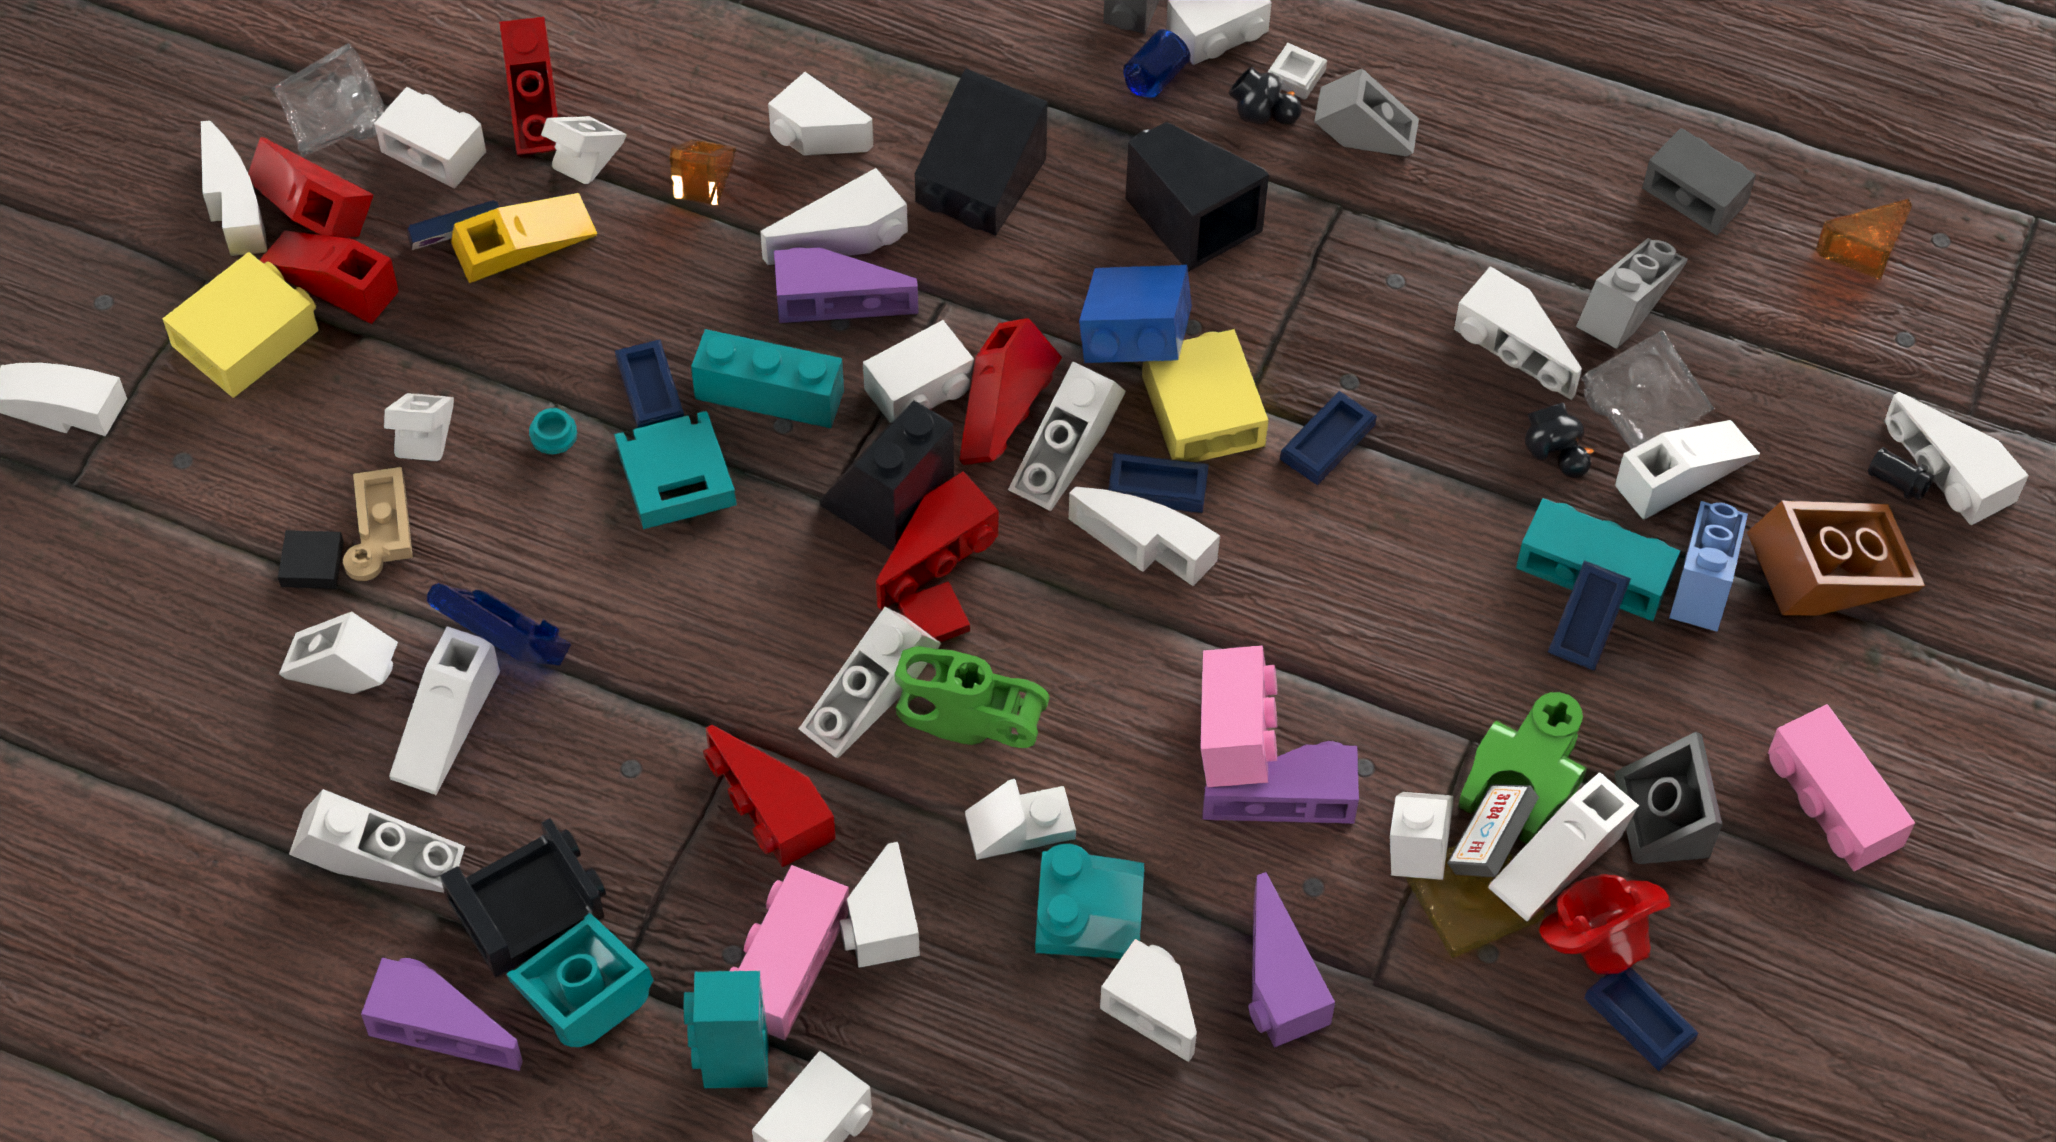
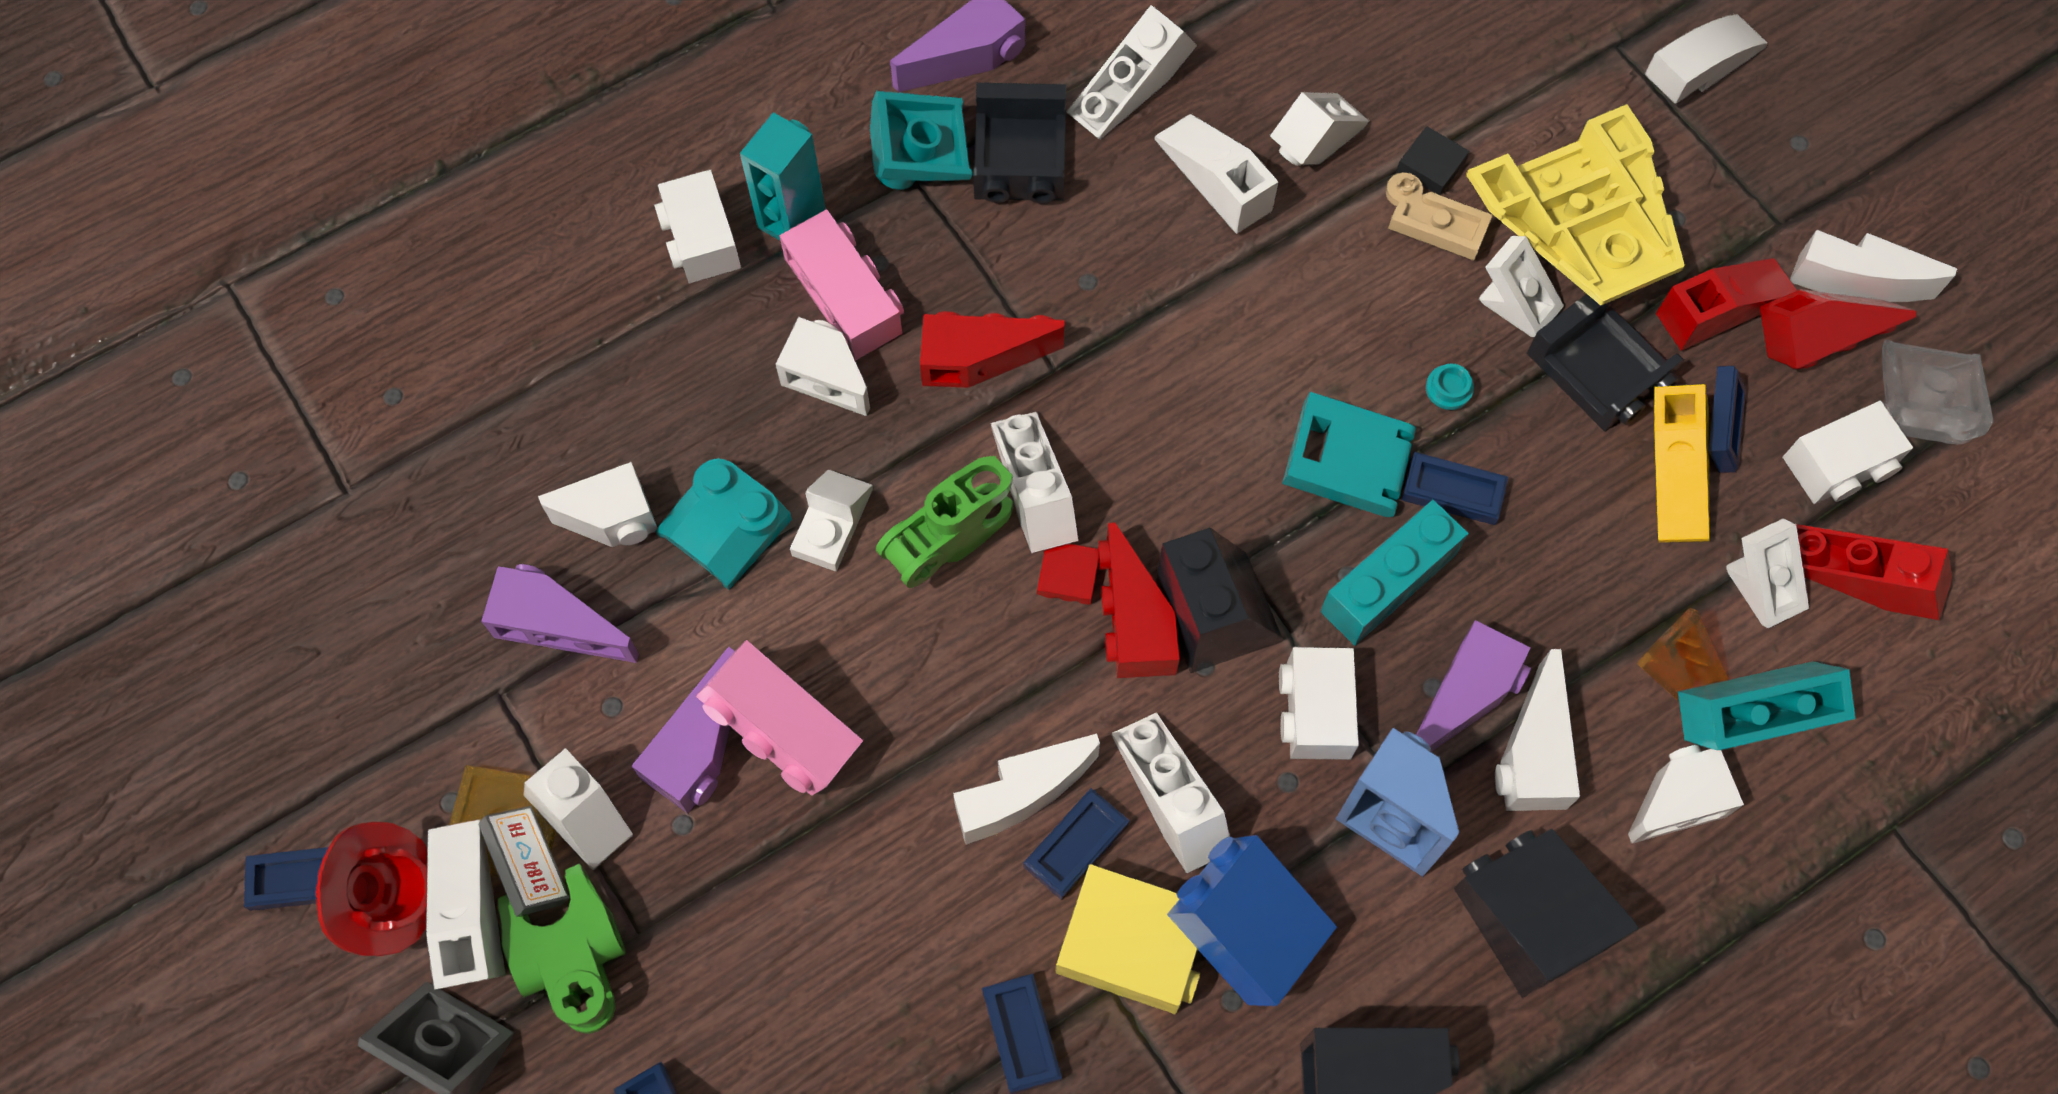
camera: 125 degrees right, 10 degrees up
(241, 324) = (1715, 210): light yellow brick -> none
(306, 397) = (1590, 207): none -> light yellow wedge
(449, 334) = (1601, 362): none -> black panel
(500, 624) = (1270, 230): clear blue container -> none
(709, 92) = (1766, 705): none -> teal brick
(971, 259) = (1403, 803): none -> medium blue slope
(1004, 383) = (1259, 766): red slope -> none

